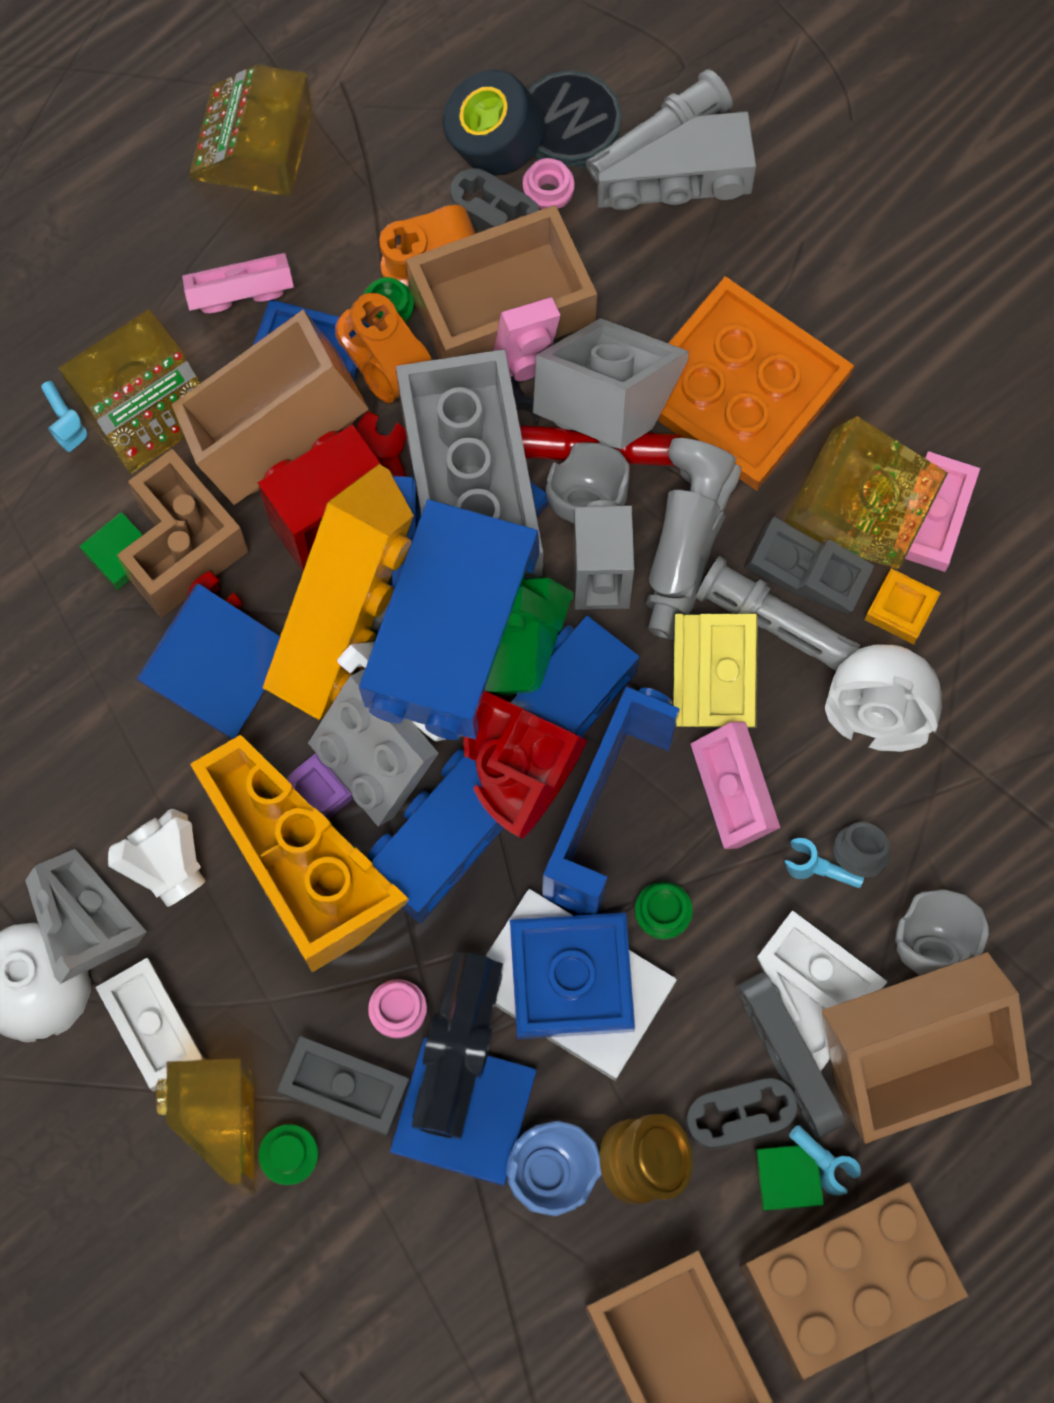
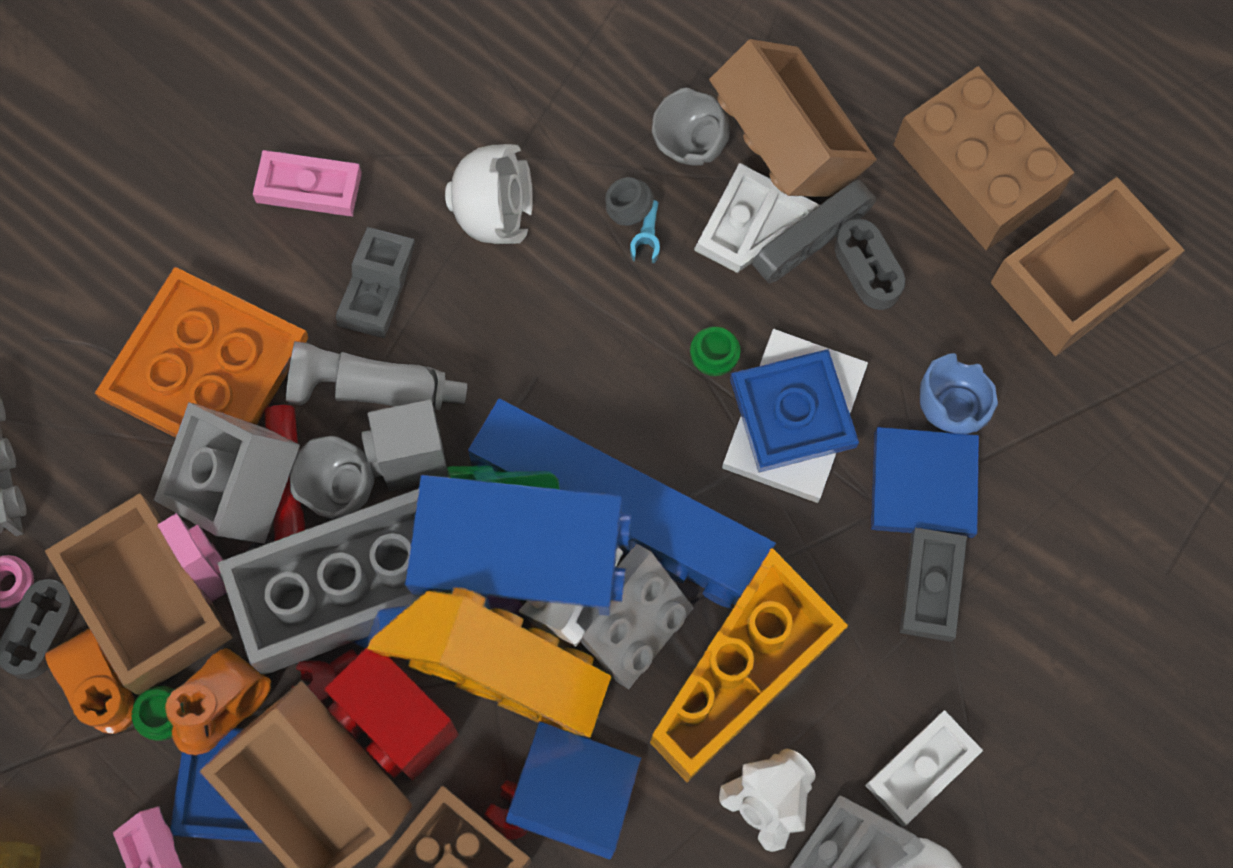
camera: 105 degrees left, 0 degrees up
(214, 1114) = (999, 679): clear yellow slope -> none
(288, 1155) = (1002, 619): green plate -> none
(320, 787) = (669, 670): medium lavender tile -> none
(397, 1009) = (853, 555): bright pink plate -> none
(457, 1046) = (881, 487): black piece -> none
(519, 762) = (631, 468): red brick -> none
(643, 716) = (638, 415): blue panel -> none
(646, 1159) = (932, 322): pearl gold wheel -> none
(715, 669) = (493, 339): light yellow plate -> none
(735, 785) = (594, 308): bright pink plate -> none
(788, 1179) = (910, 221): green tile -> none
(791, 625) = (423, 317): light grey pin -> none
(826, 1161) = (893, 192): medium azure hand -> none
(867, 494) = (304, 237): clear yellow slope -> none
(902, 606) = (399, 202): light orange tile -> none

